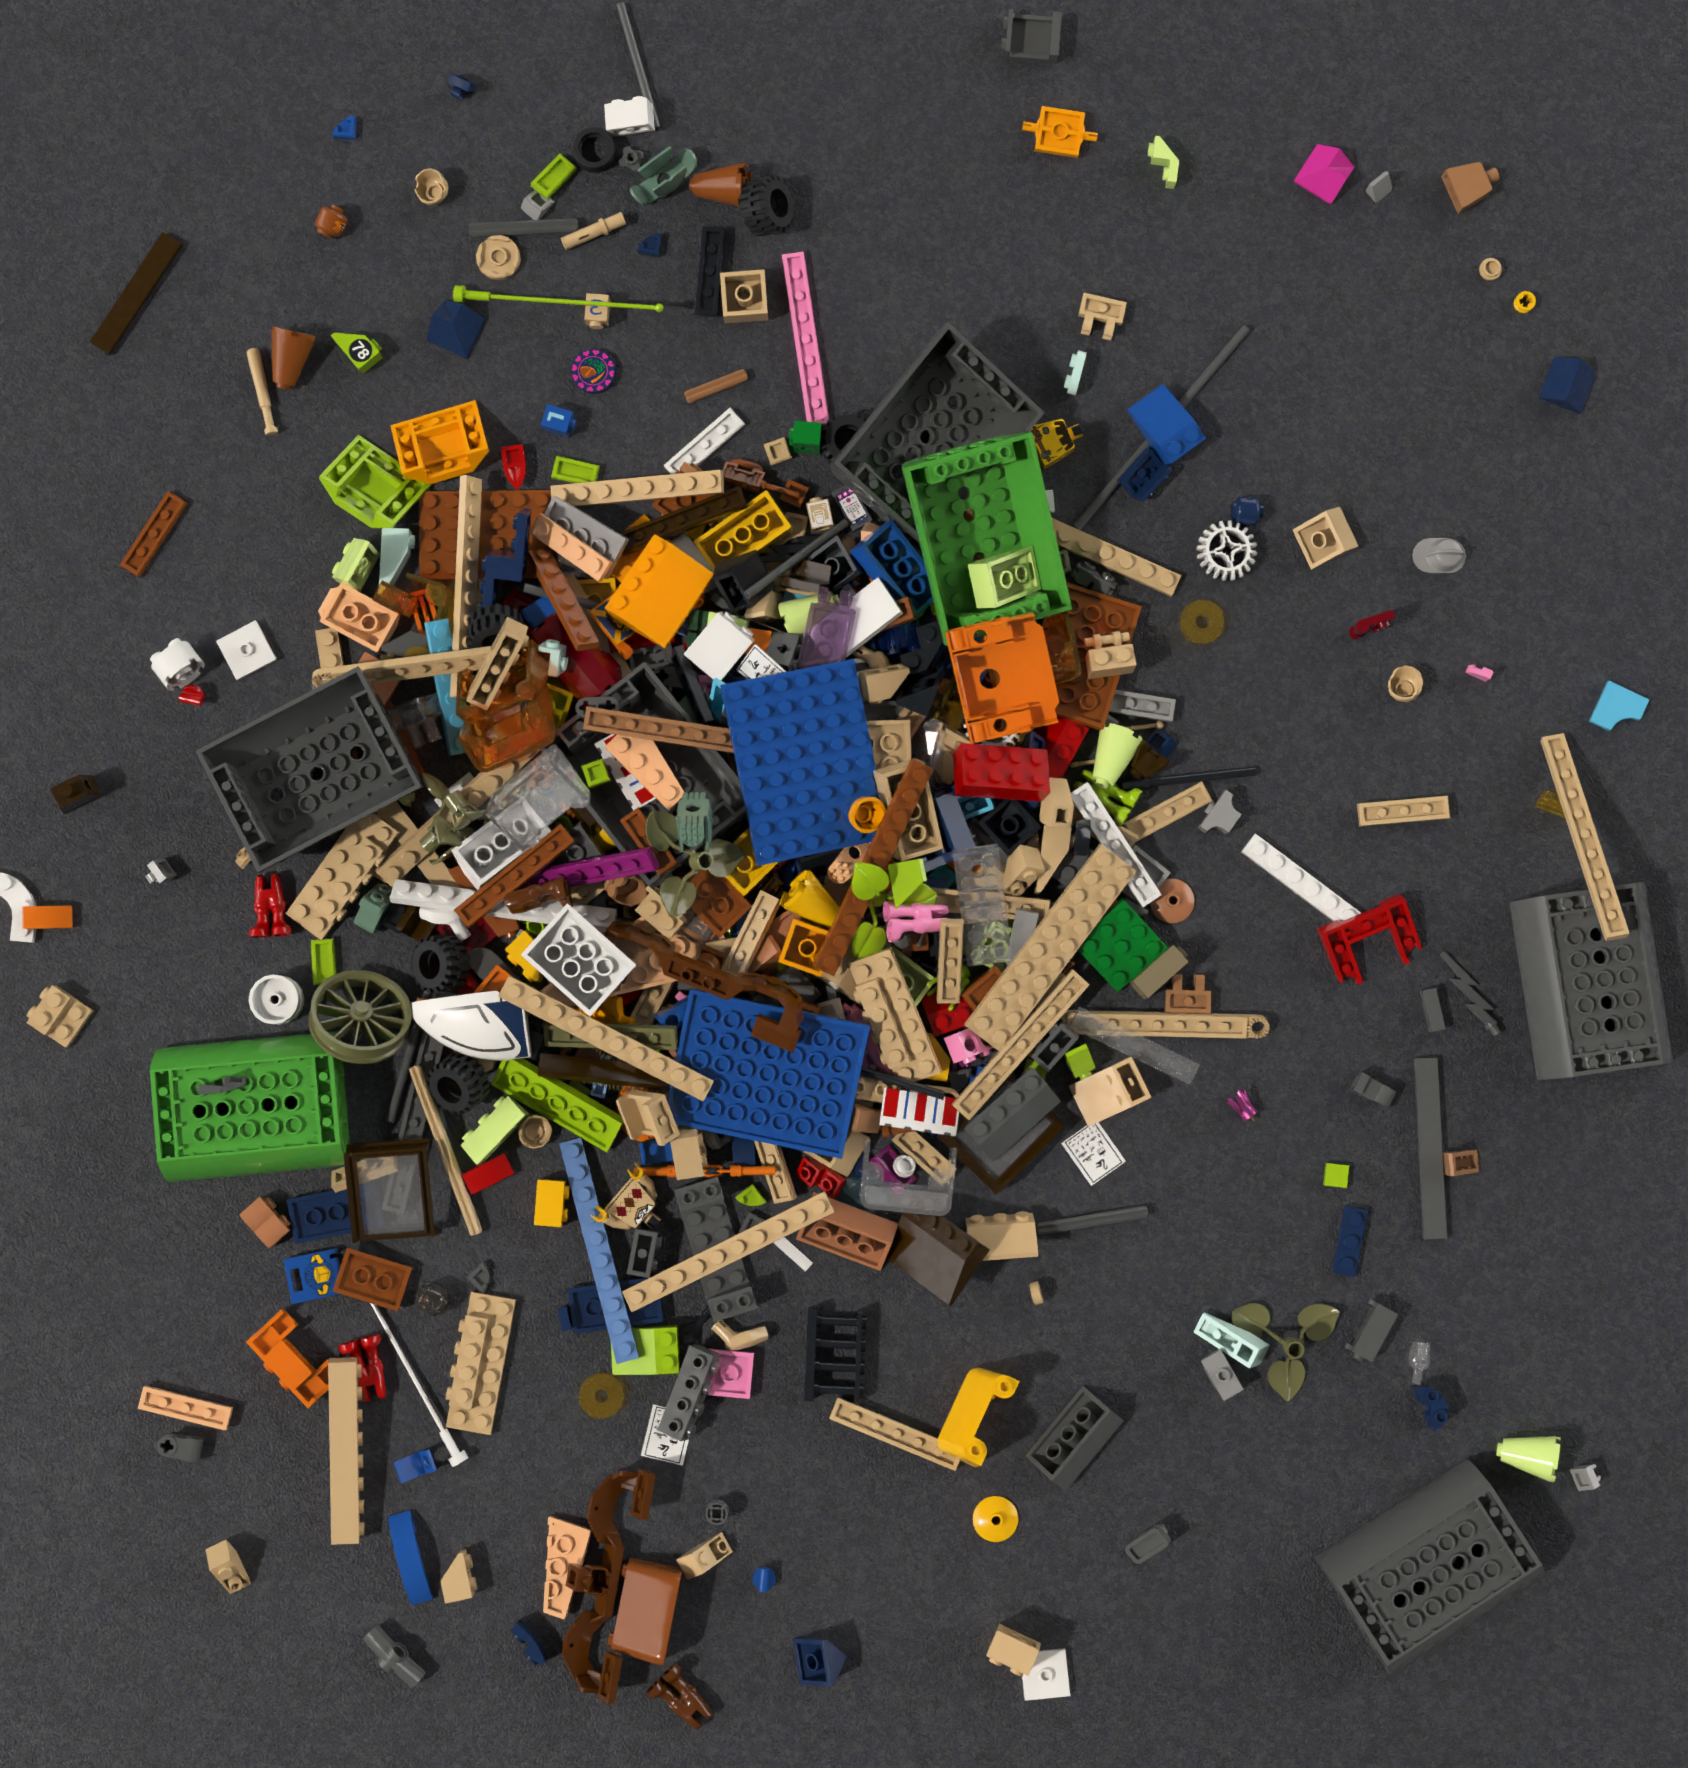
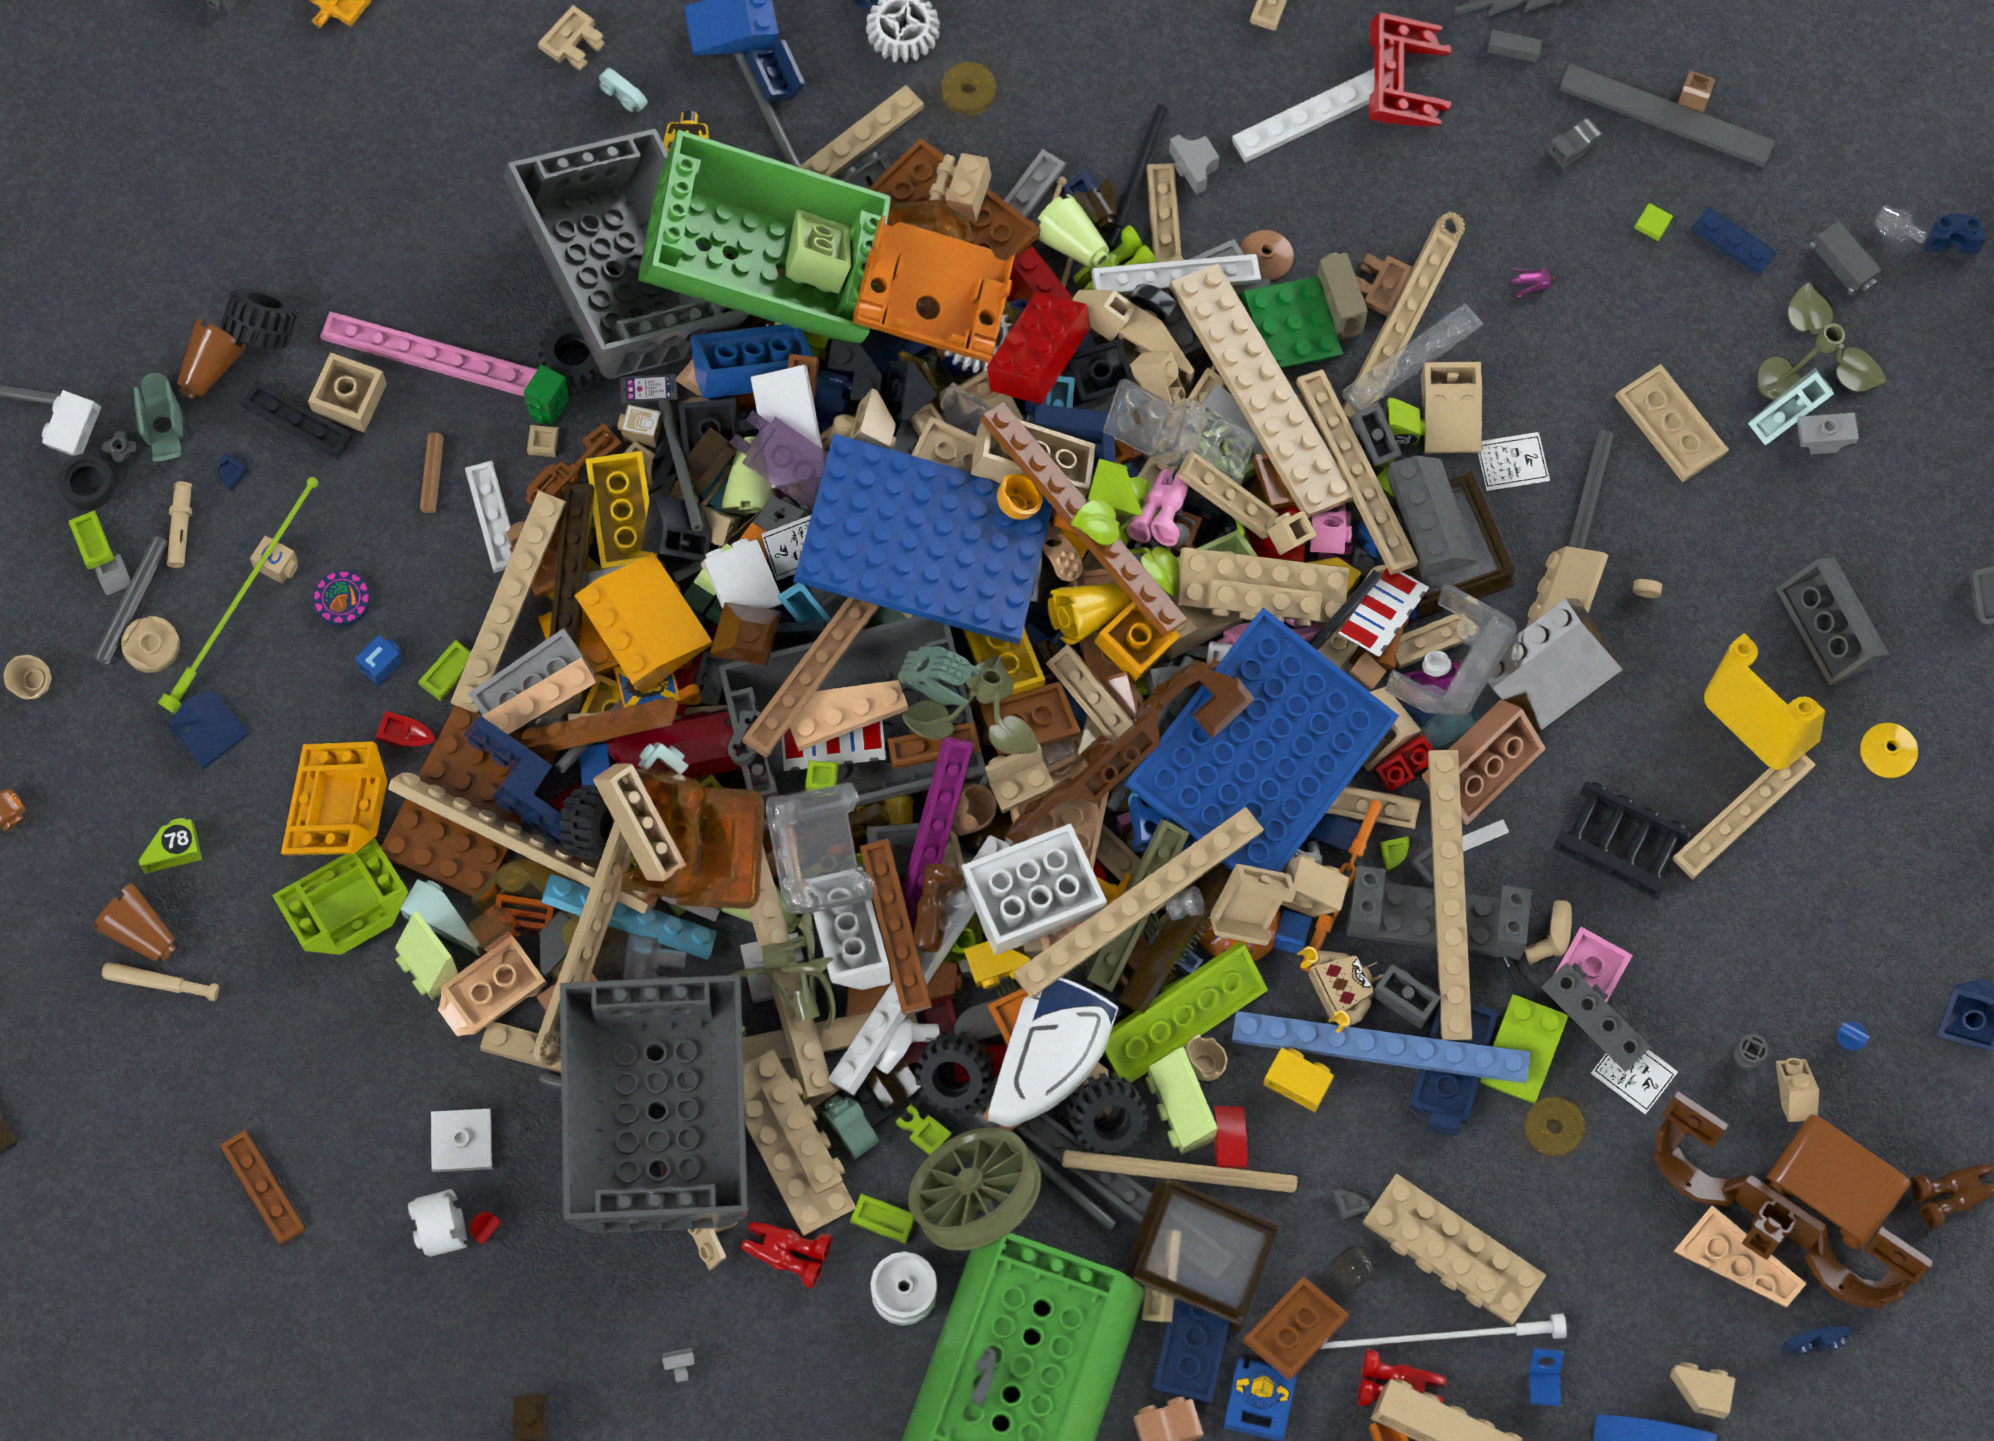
camera: 65 degrees left, 15 degrees down
(394, 964) = (927, 1133): none -> lime plate
(628, 1073) = (1185, 903): none -> clear wheel
(677, 669) = (745, 633): none -> reddish brown slope
(944, 1019) = (1291, 531): none -> tan brick
(1178, 1256) = (1671, 423): none -> tan tile

